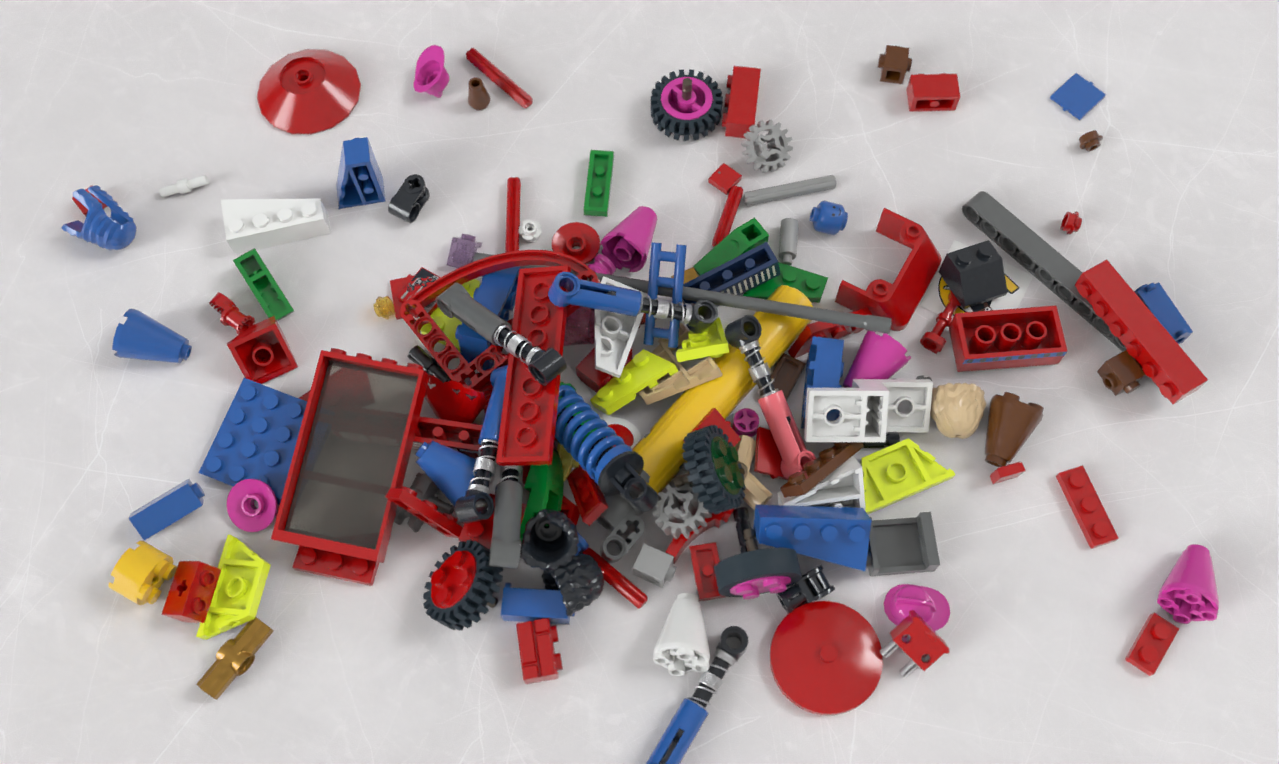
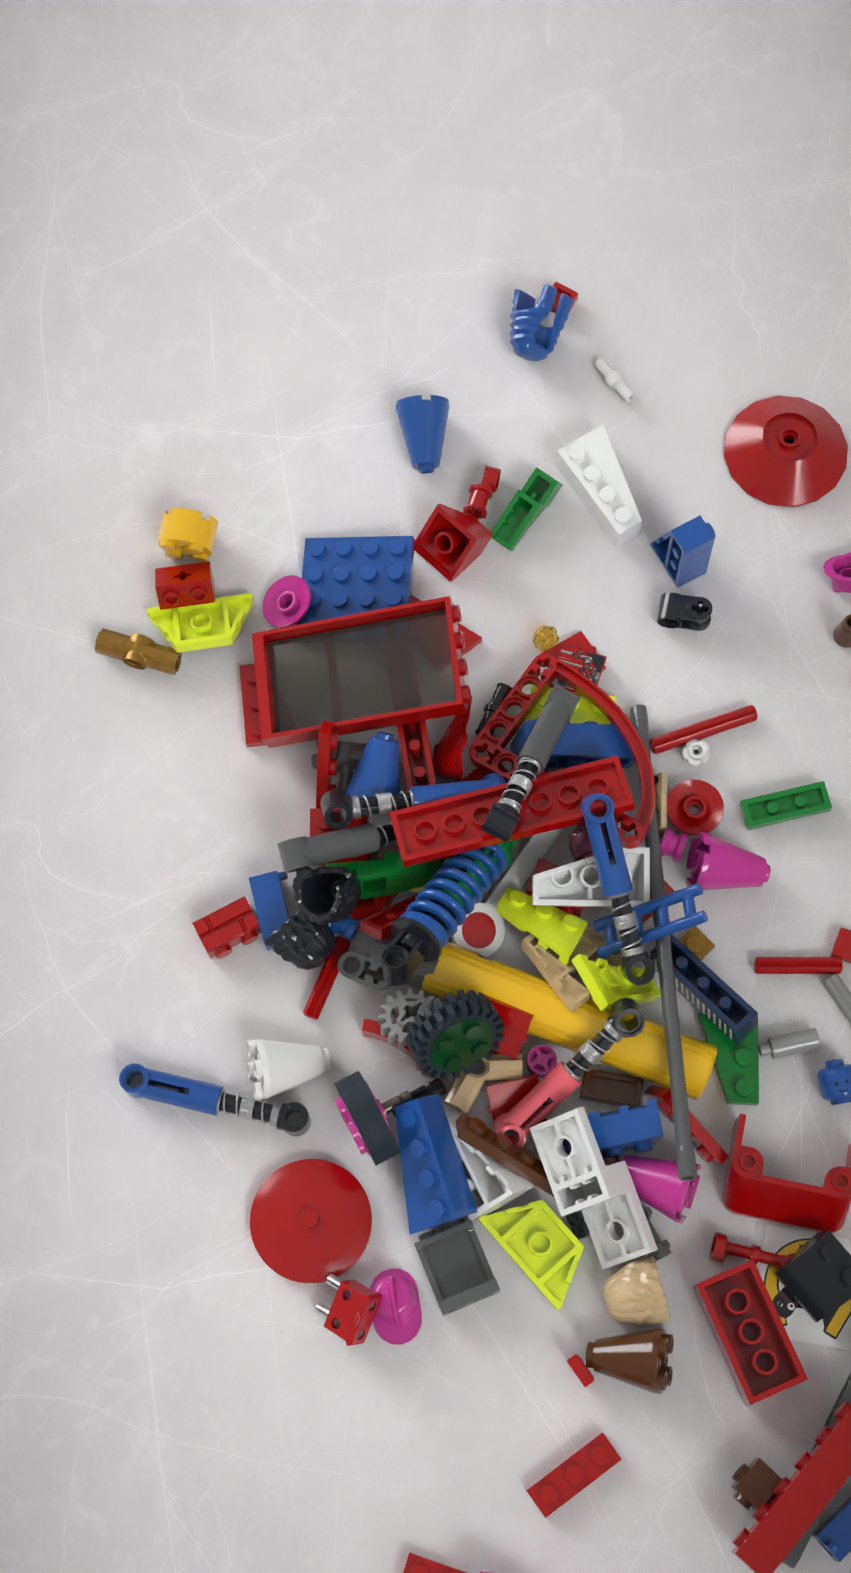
camera: 75 degrees right, 5 degrees up
(167, 509) = (257, 527): blue brick -> none
(462, 250) = (642, 691): clear purple bracket -> none
(462, 586) = (258, 826): black wheel -> none
(654, 566) = (349, 1013): light grey brick -> none
(703, 560) = (372, 1065): red plate -> none
(735, 244) = (751, 983): green slope -> none
(810, 588) = (375, 1180): black connector -> none

